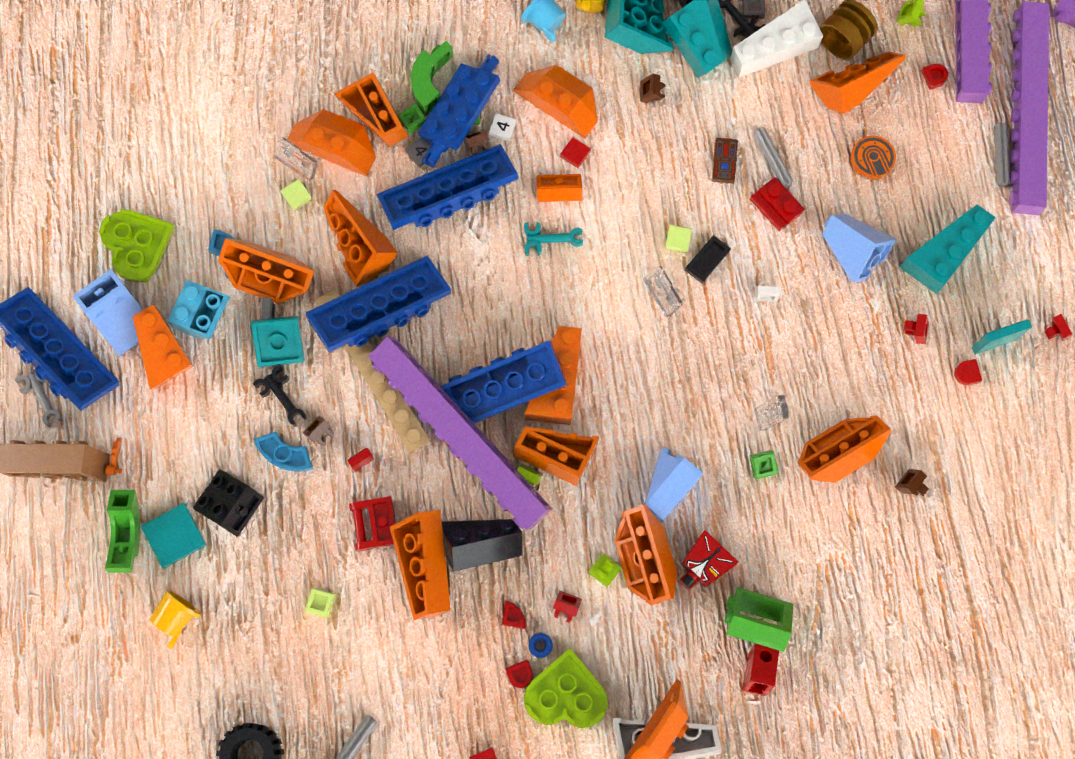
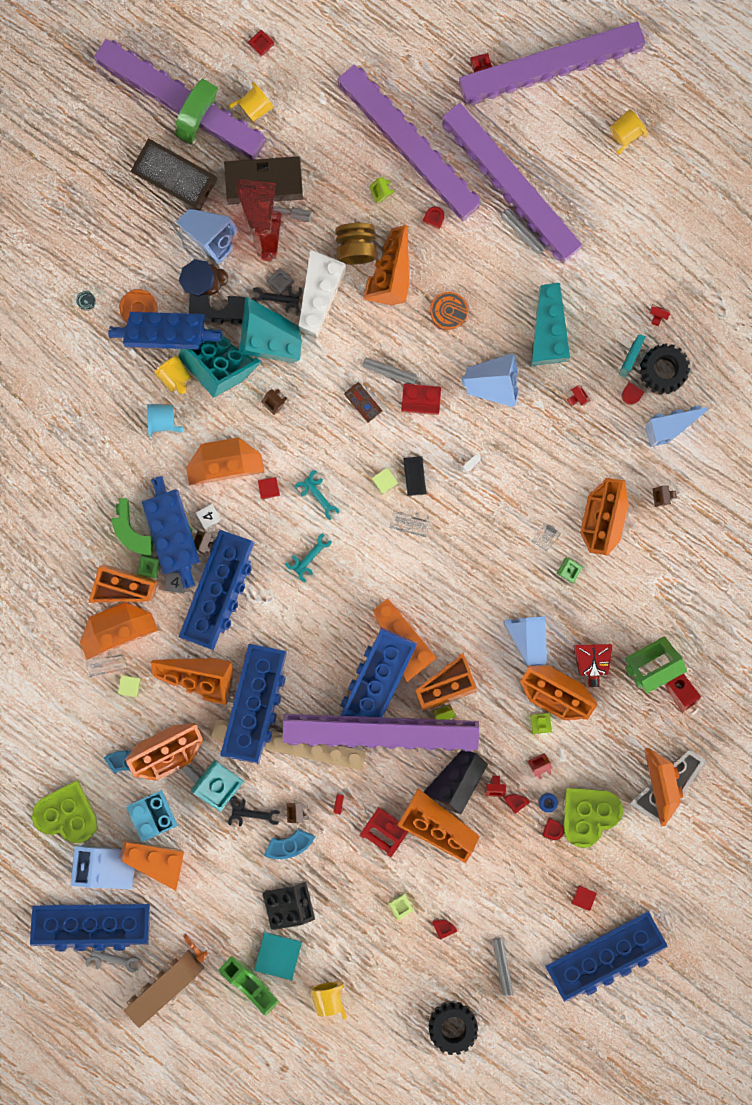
camera: 45 degrees left, 10 degrees up
(336, 660) = (444, 928): none -> red tile
(507, 584) = (495, 788): none -> red tile
(559, 187) = (281, 520): orange slope -> none
(612, 182) = (309, 484): none -> teal bar
(978, 428) = (664, 429): none -> light blue slope
(1032, 364) = (672, 355): none -> black tyre

